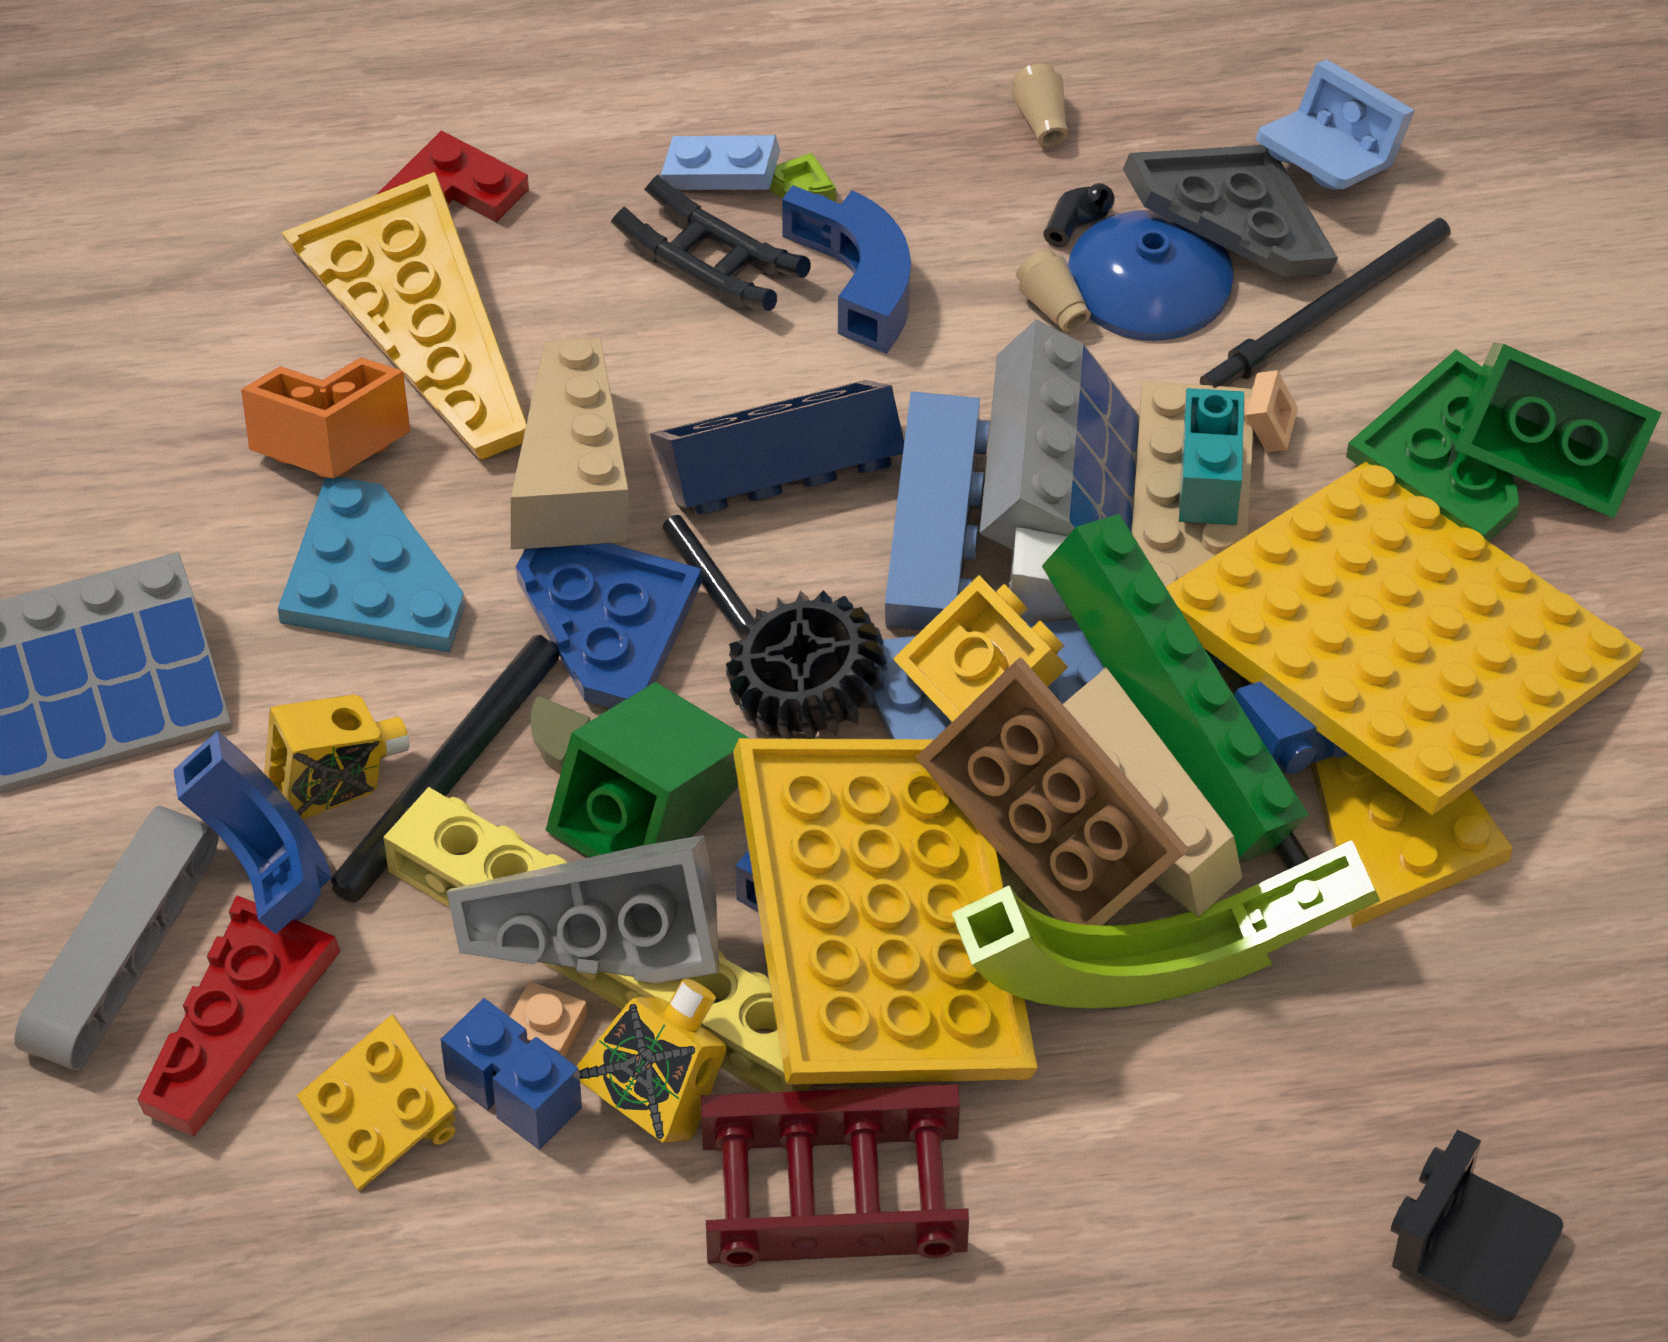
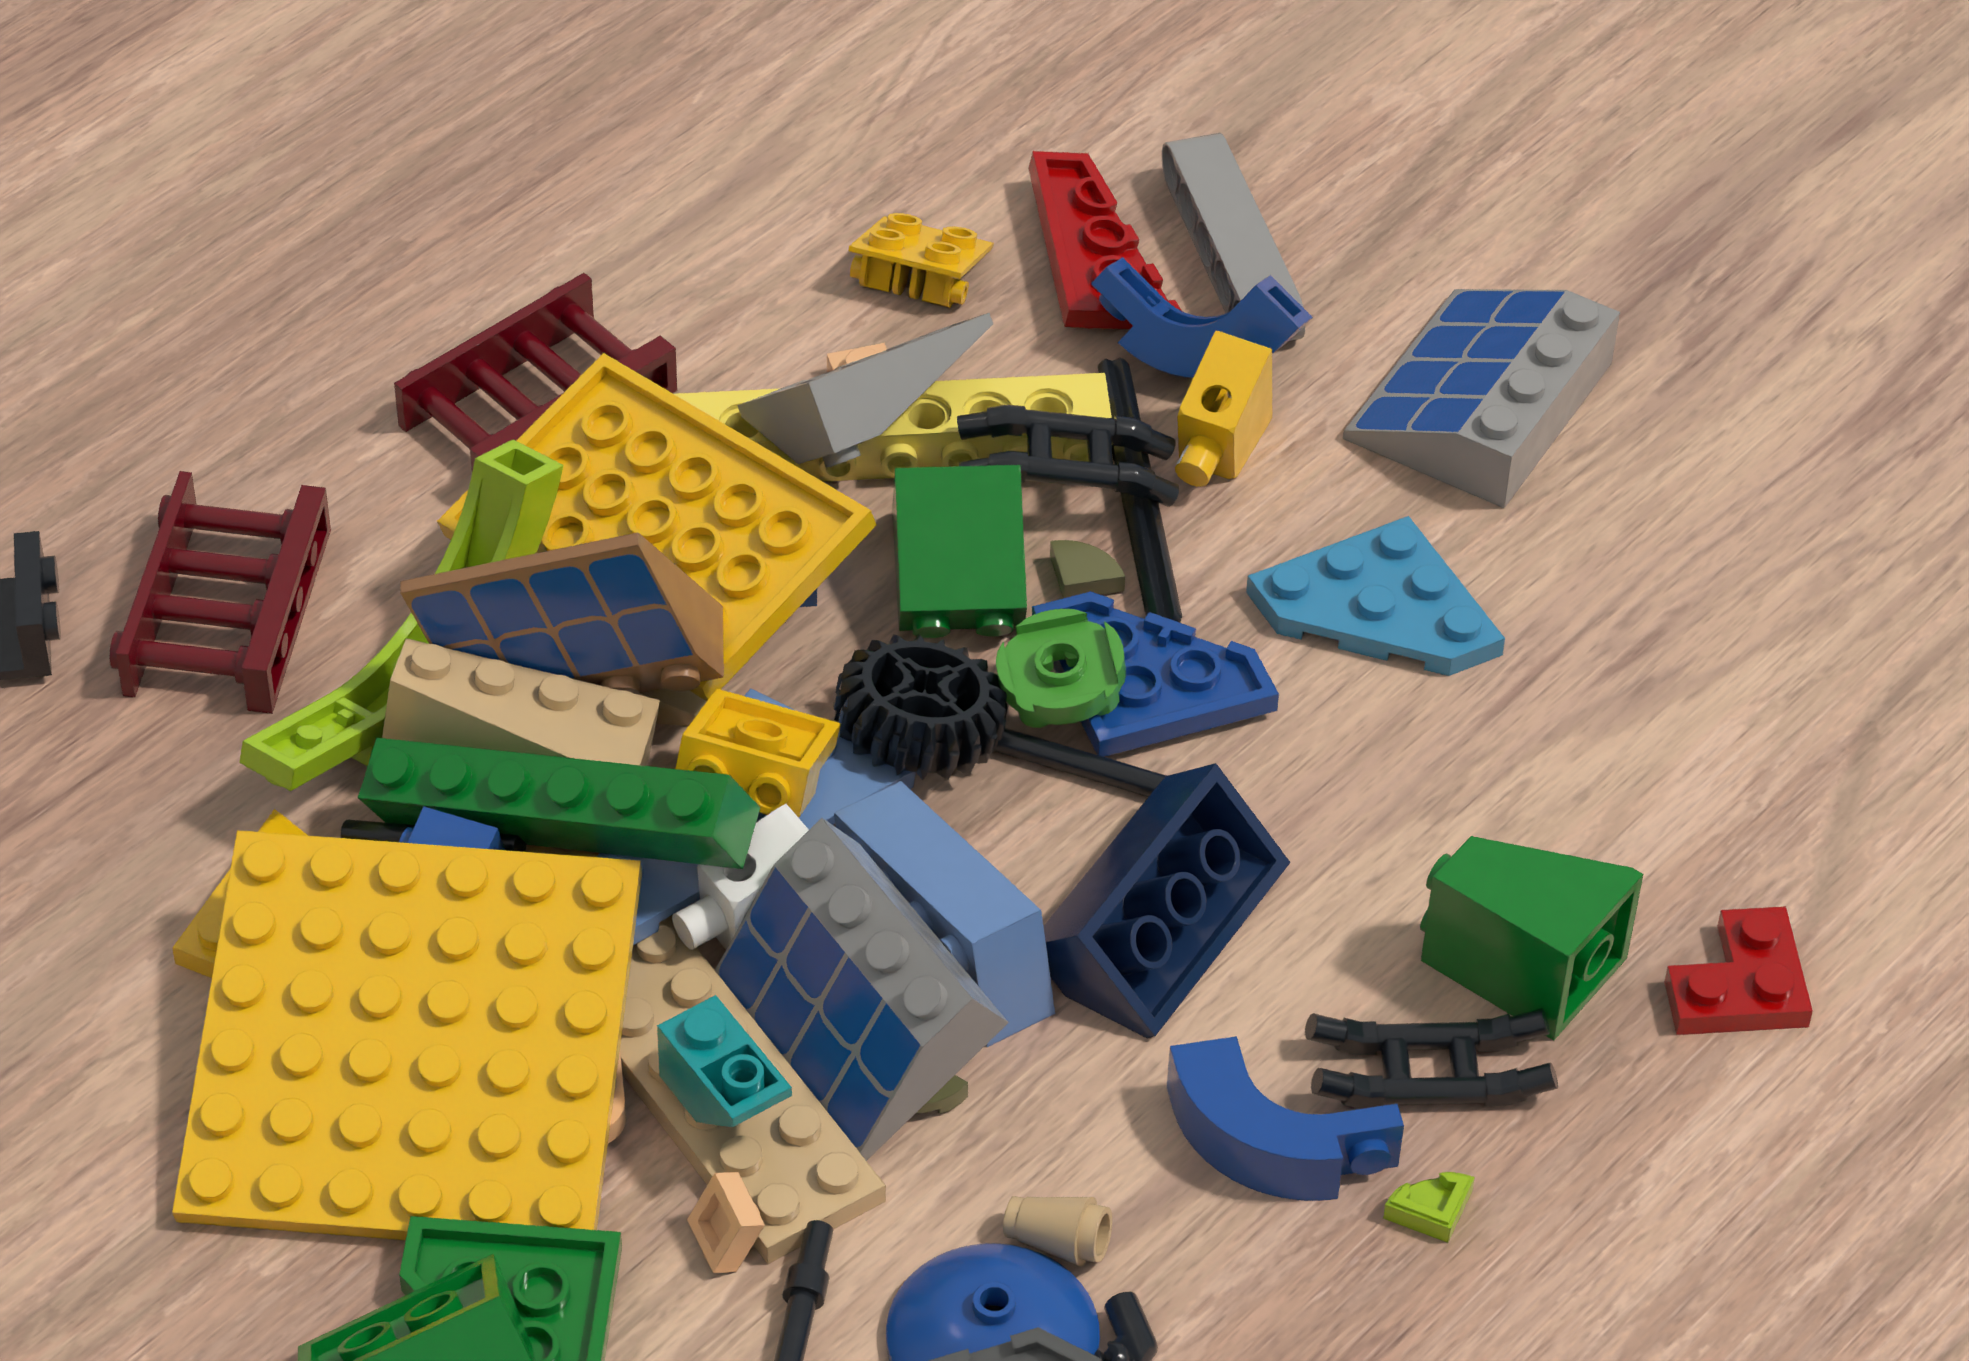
camera: 140 degrees right, 5 degrees down
(326, 421) = (1543, 643): orange brick -> none
(413, 292) = (1686, 846): yellow wing -> none
(503, 801) = (1100, 436): none -> black piece
(533, 1085) = (810, 299): blue piece -> none
(569, 242) = (1529, 926): none -> green slope
(571, 461) = (1313, 747): tan wedge -> none
(658, 1062) = (734, 354): torso -> none
(674, 645) = (1068, 696): none -> bright green plate
(721, 162) = (1520, 1152): light blue plate -> none
(1237, 1080) = (271, 621): none -> dark red fence

